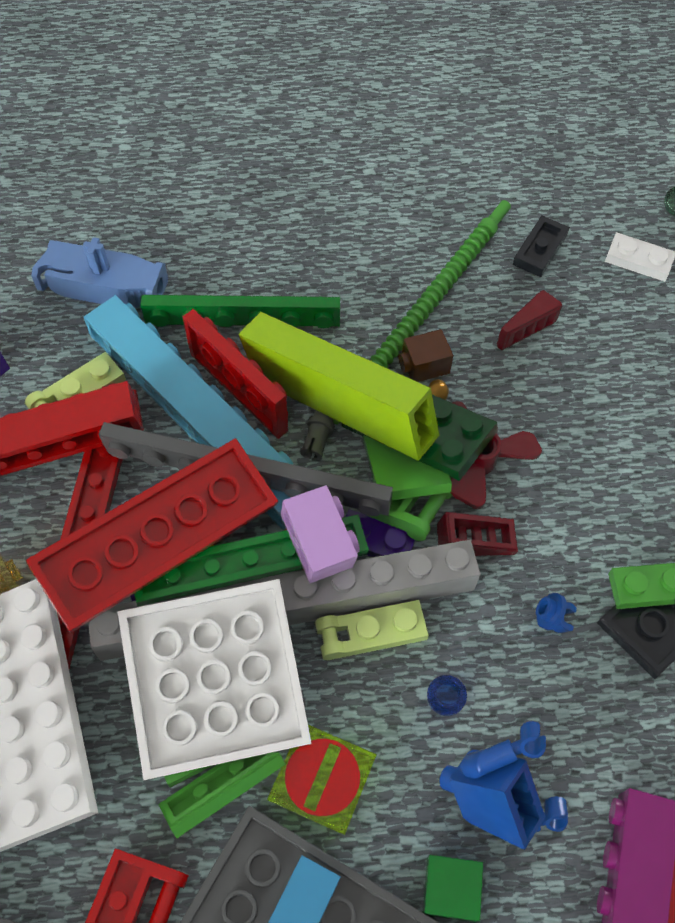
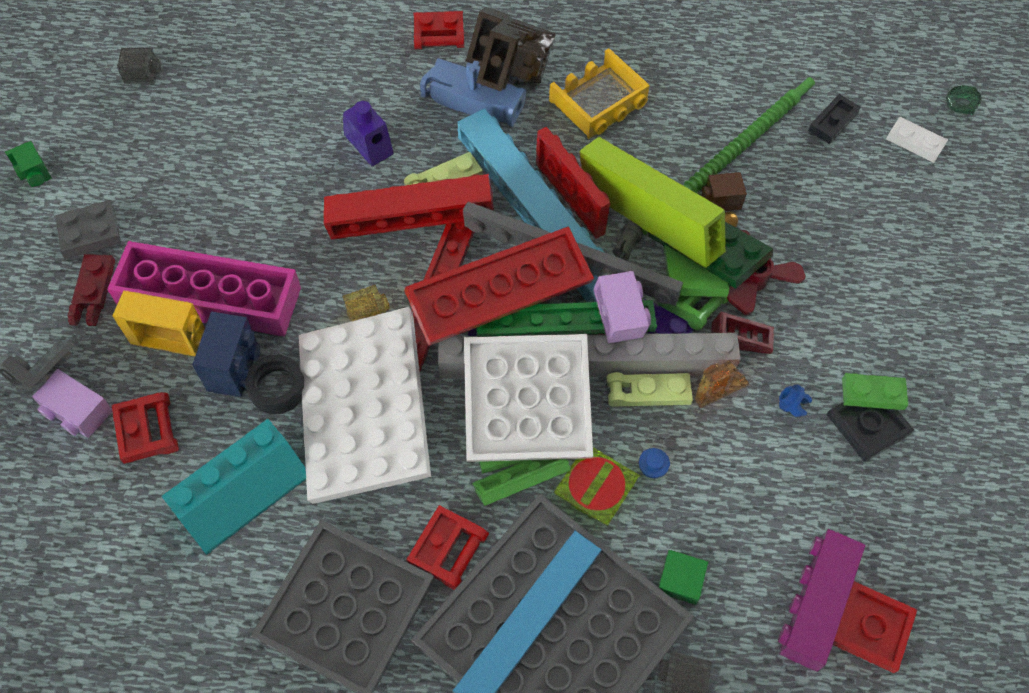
camera: 10 degrees right, 0 degrees up
(50, 203) = (438, 29): none -> red plate
(135, 218) = (508, 50): none -> dark brown brick
(241, 310) = (581, 134): green plate -> none
(260, 255) = (601, 95): none -> yellow window
(392, 731) = (654, 463): none -> blue plate
(446, 695) = (699, 445): clear blue plate -> none
(457, 608) = (719, 382): none -> clear orange wing
(499, 792) = (728, 512): blue torso -> none
(533, 317) = (816, 175): dark red slope -> none

